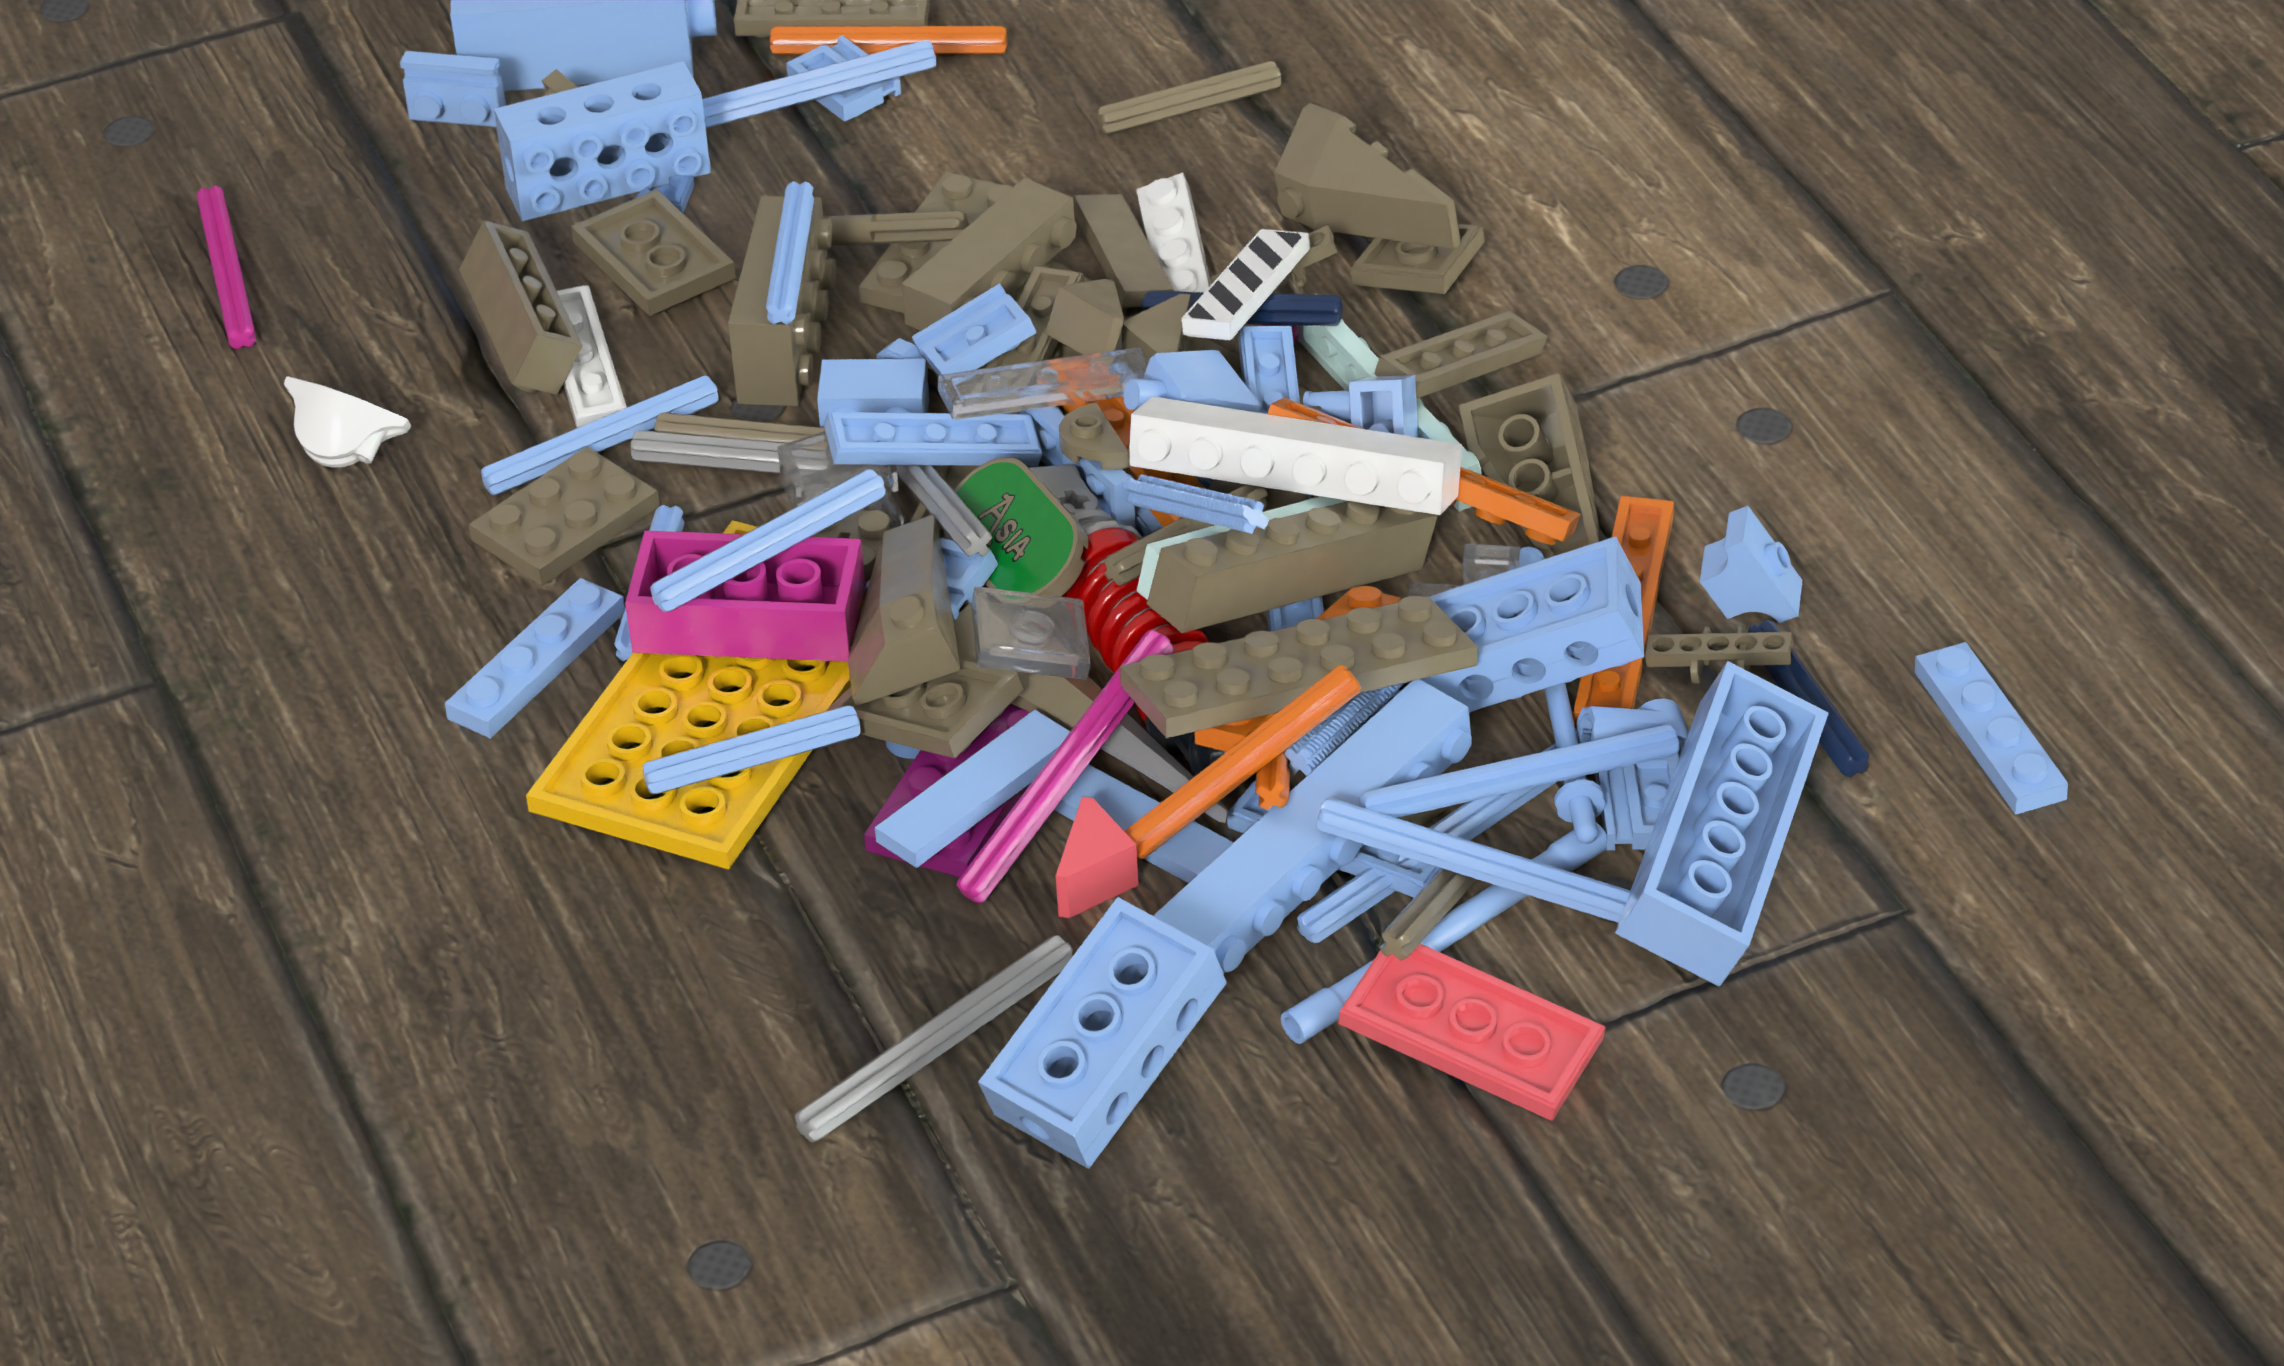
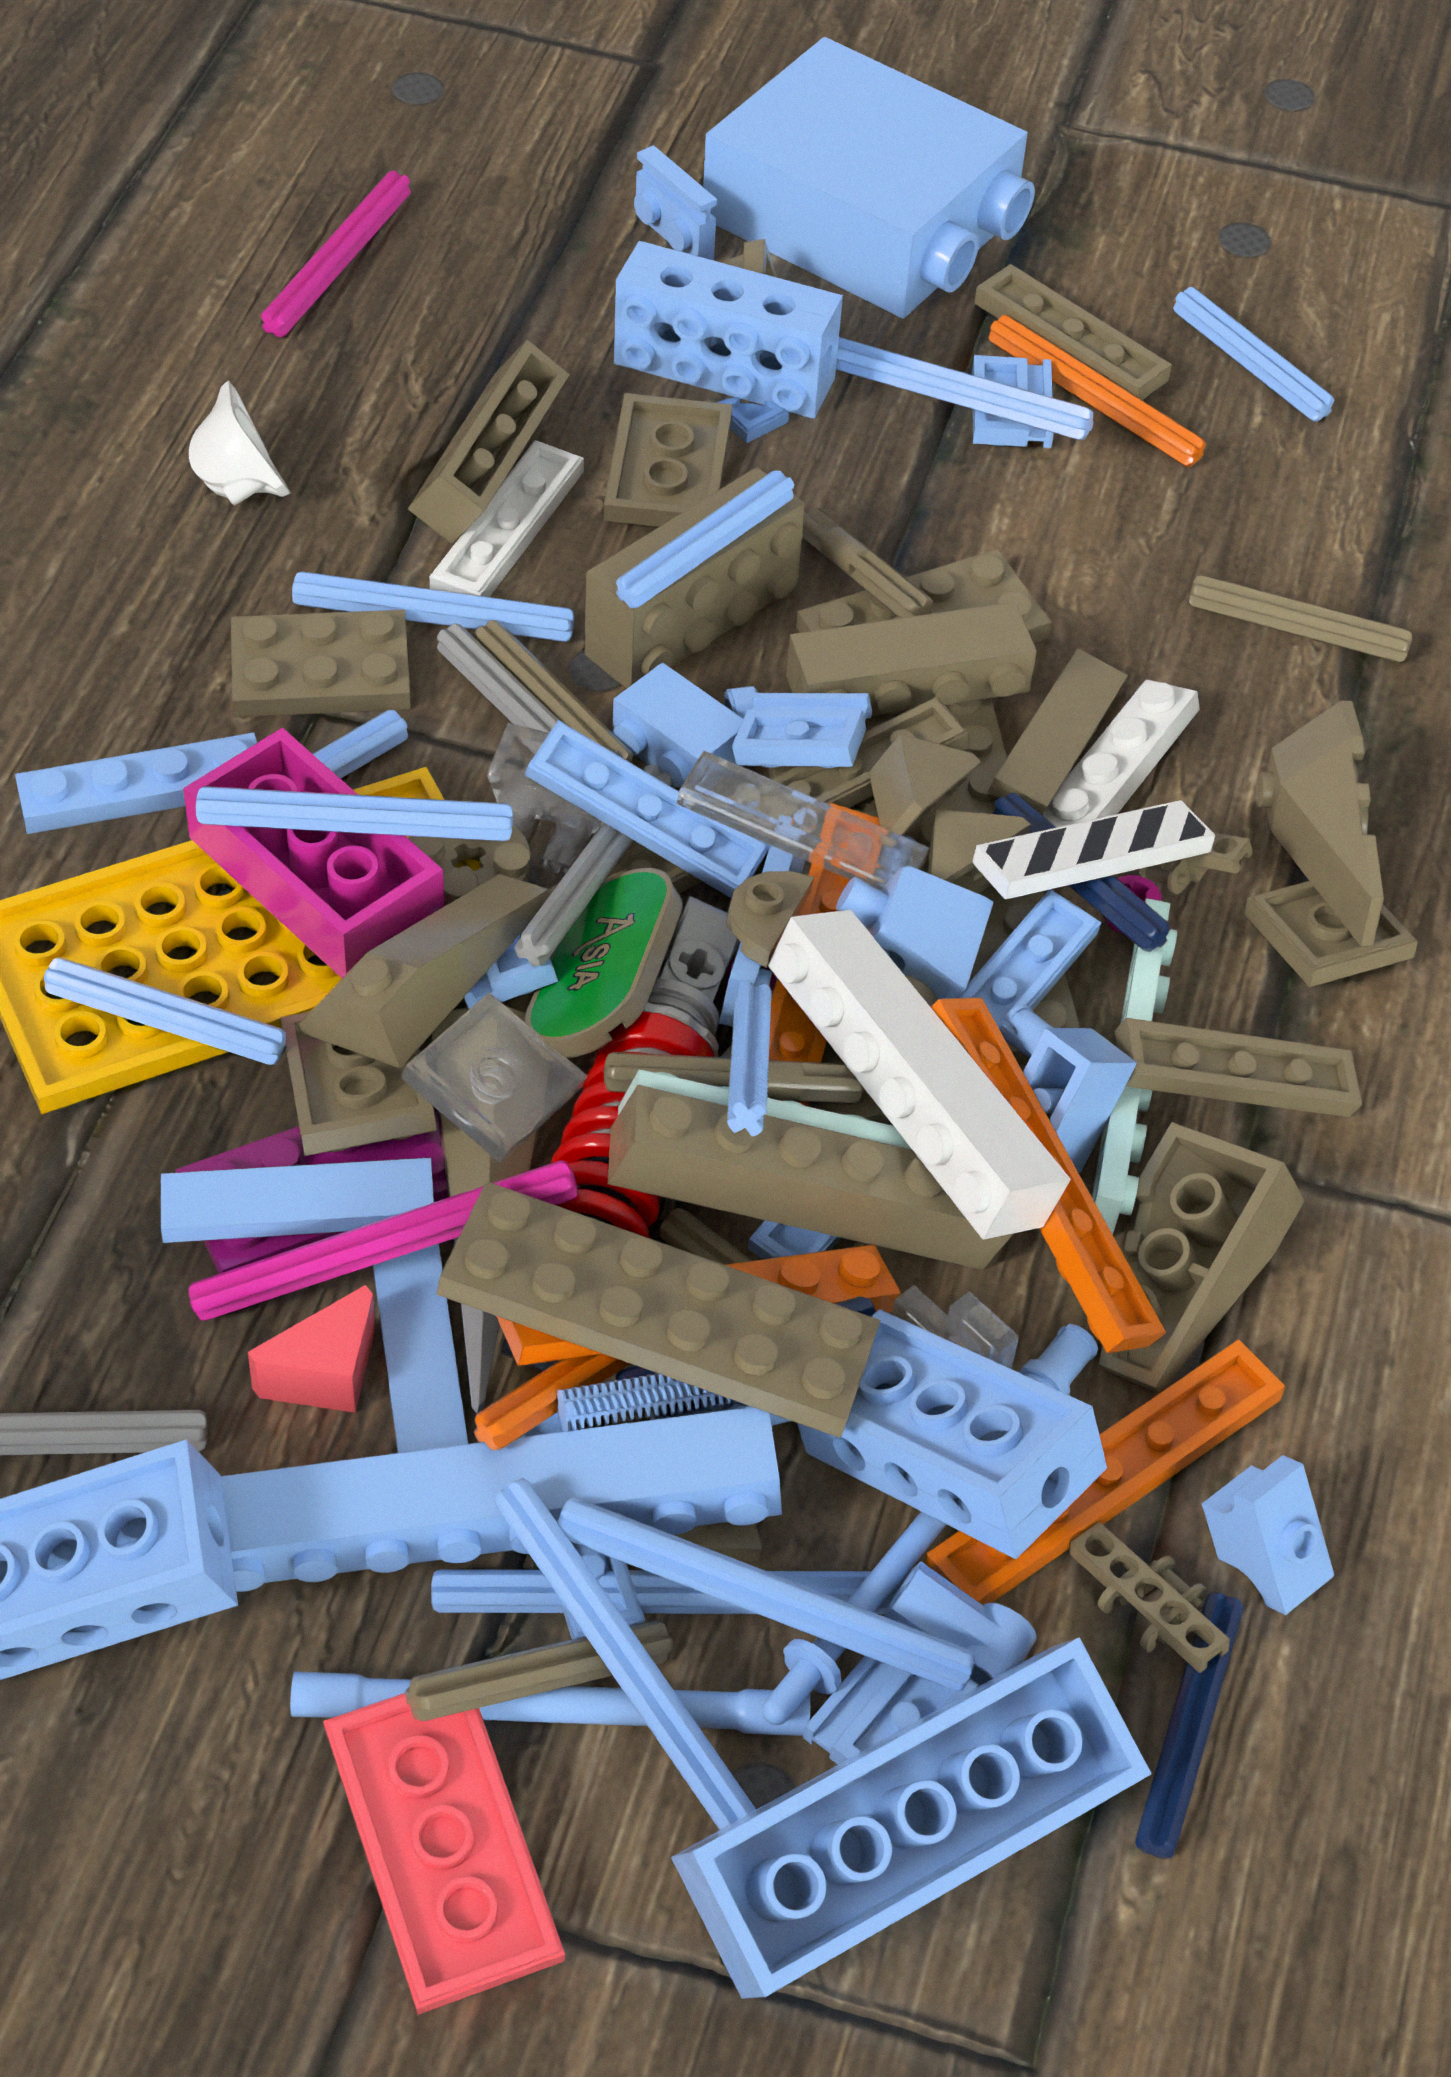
camera: 35 degrees right, 10 degrees up
(1243, 760) = (505, 1371): orange axle -> none
(1991, 728) = (1346, 1920): light blue plate -> none

